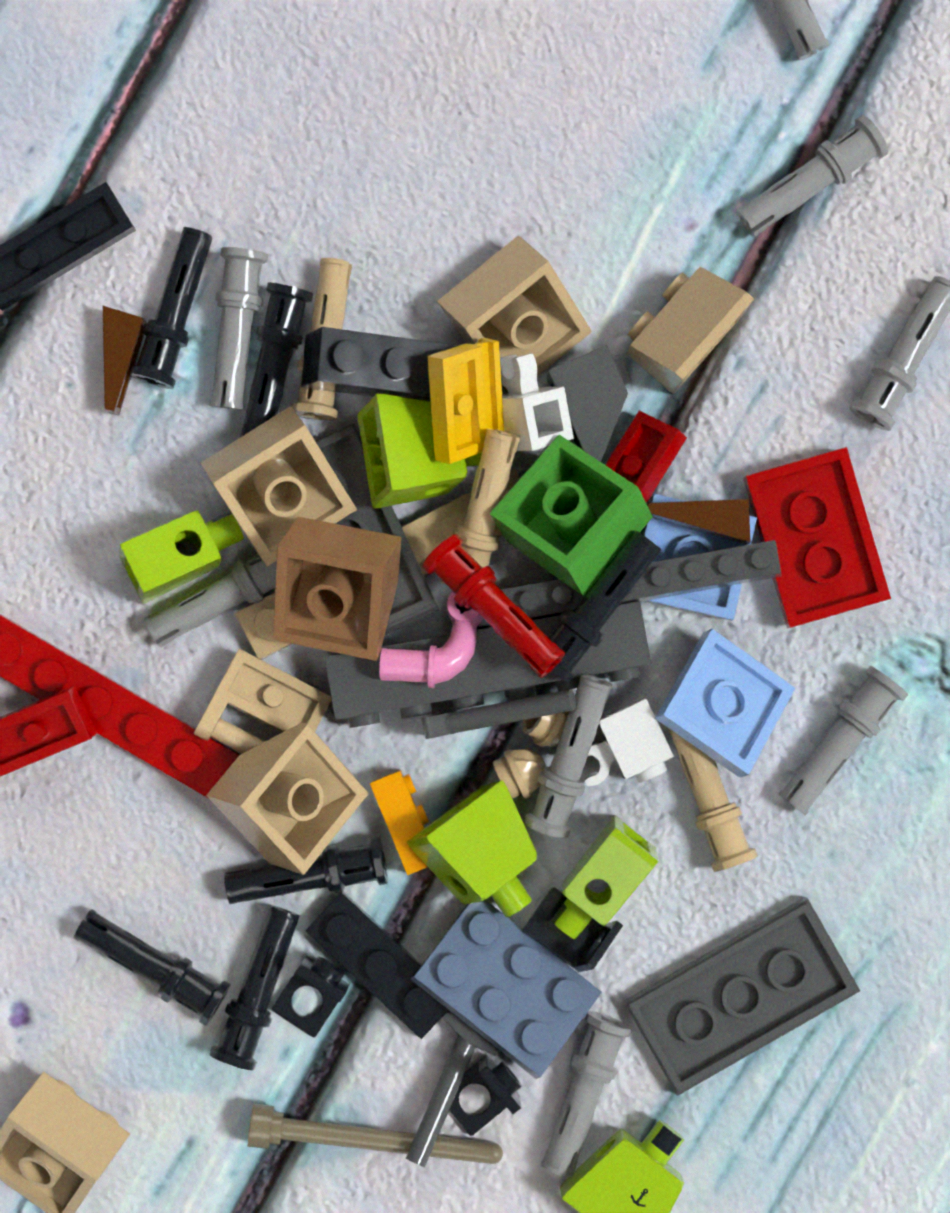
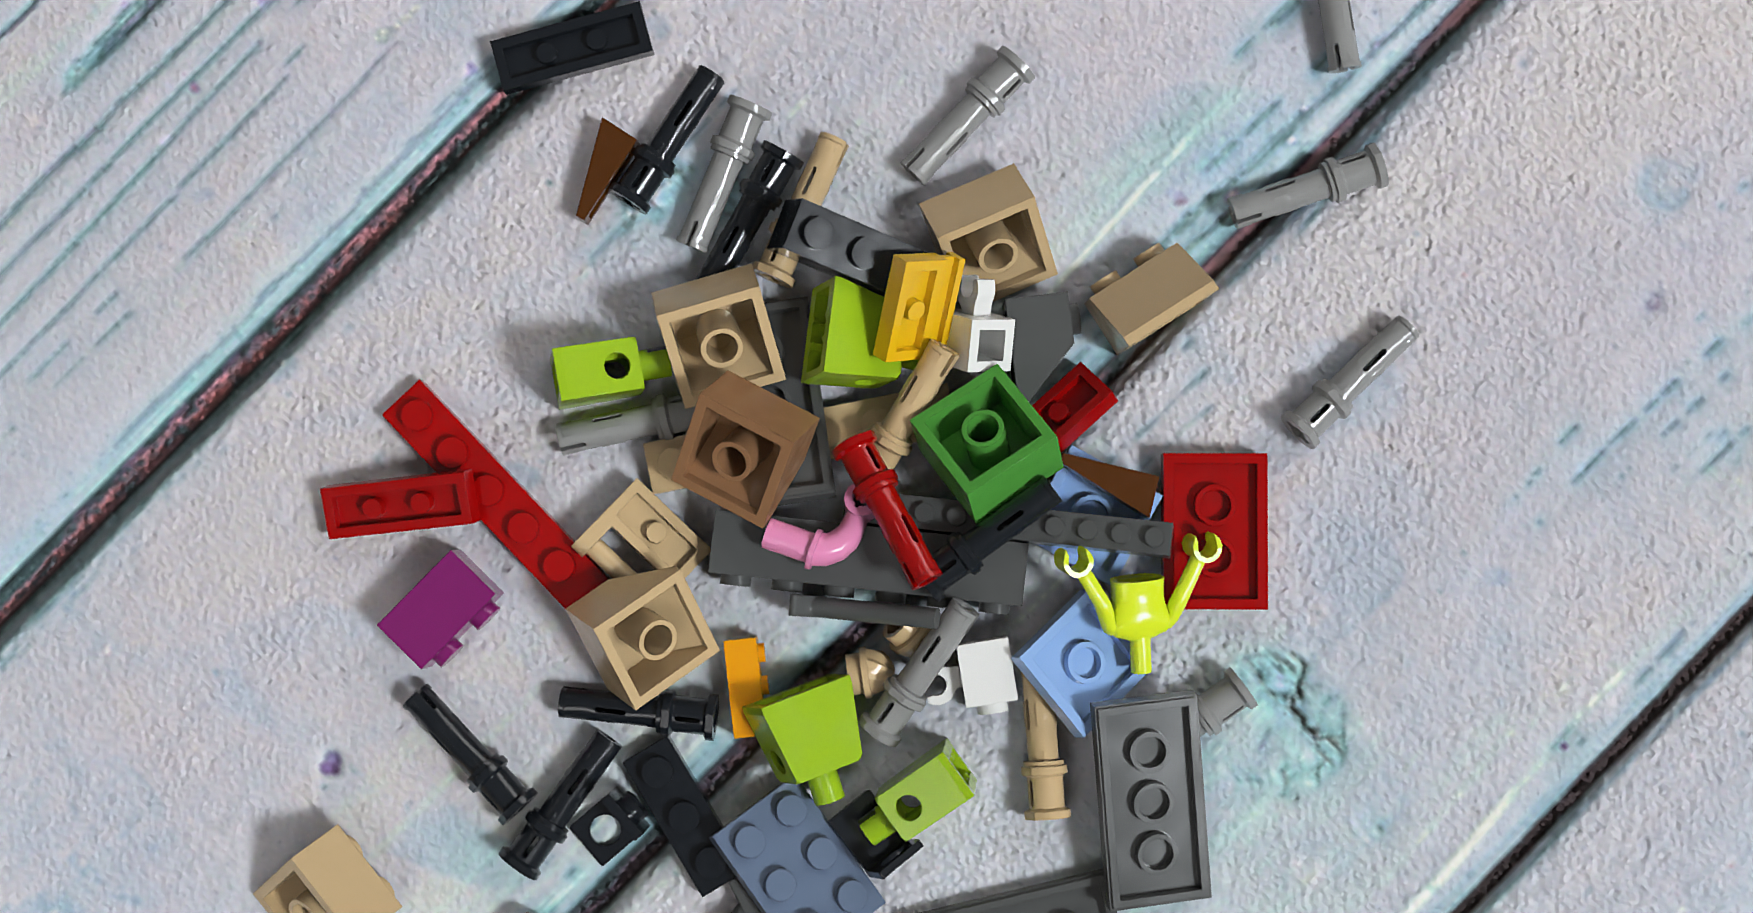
camera: 20 degrees right, 0 degrees up
(85, 832) = (442, 610): none -> magenta brick
(470, 181) = (983, 98): none -> light grey pin
(762, 628) = (1137, 600): none -> neon yellow piece
(831, 817) = (1151, 800): none -> dark grey tile

